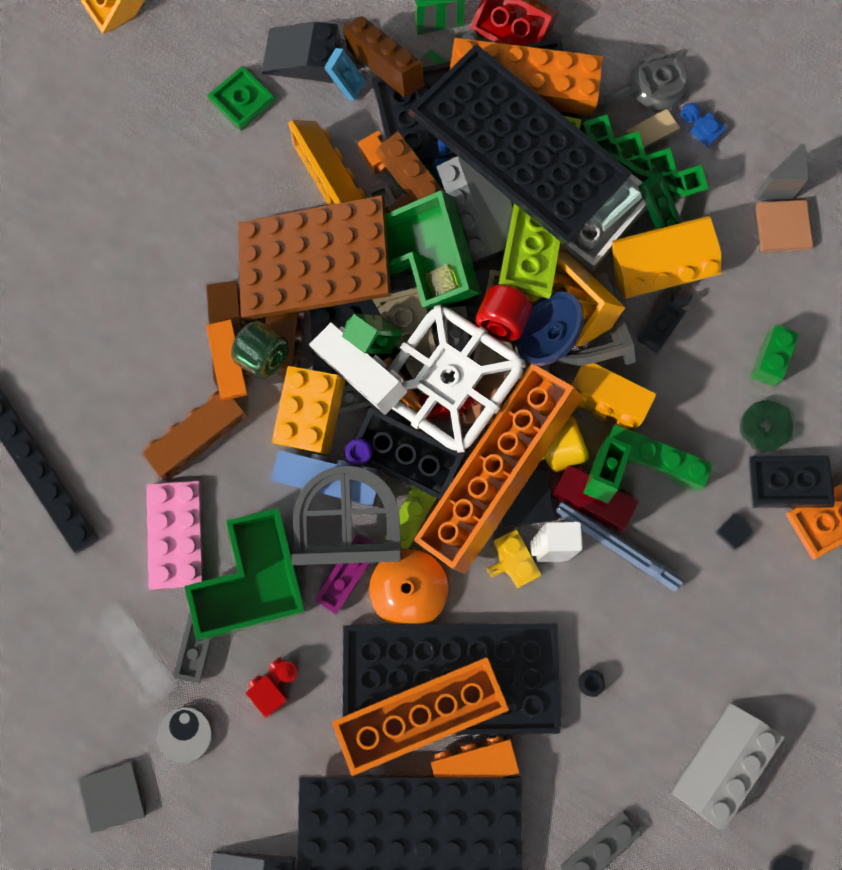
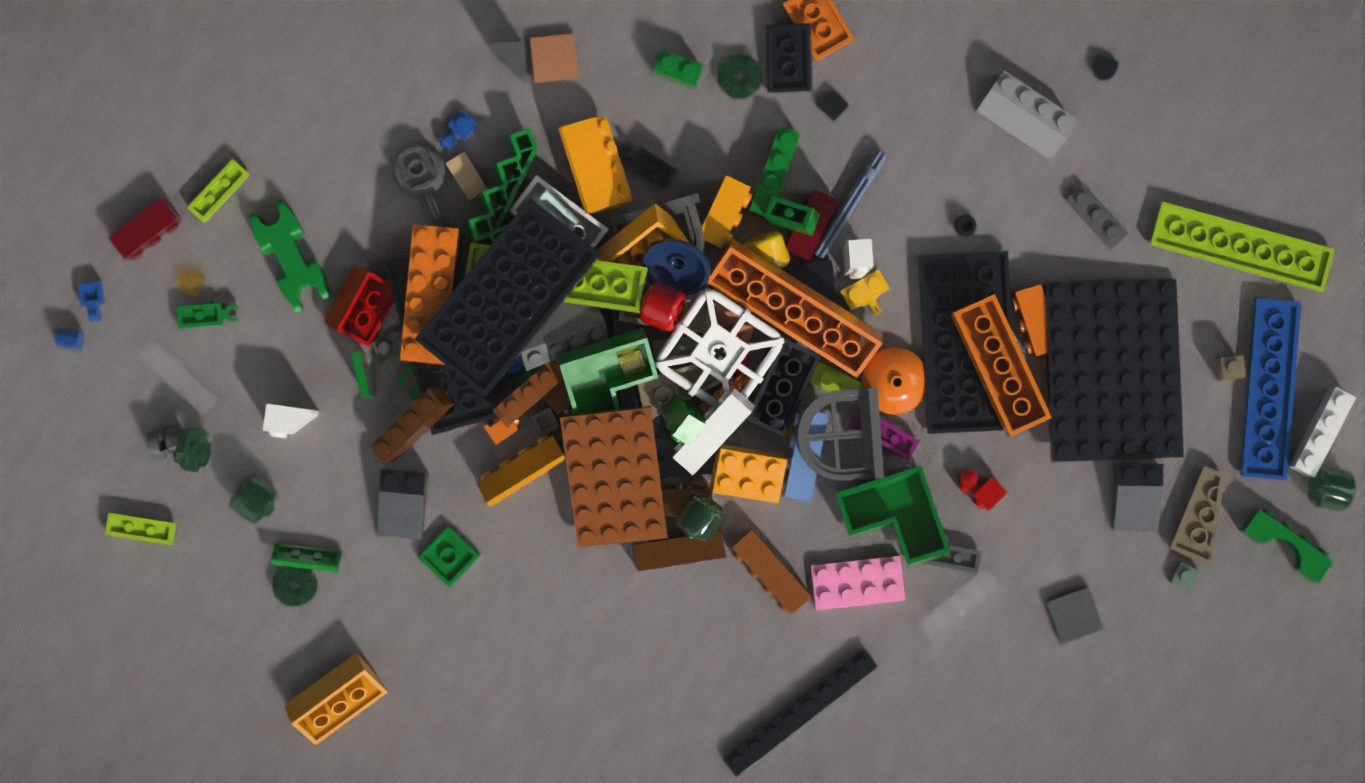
camera: 85 degrees left, 10 degrees up
(184, 735) = (1022, 560): light grey tile -> none
(228, 374) = (696, 550): orange tile -> none
(345, 74) = (428, 459): dark azure plate -> none
(359, 451) = (782, 427): dark purple tile -> none
(659, 201) = (547, 170): dark green tile -> none

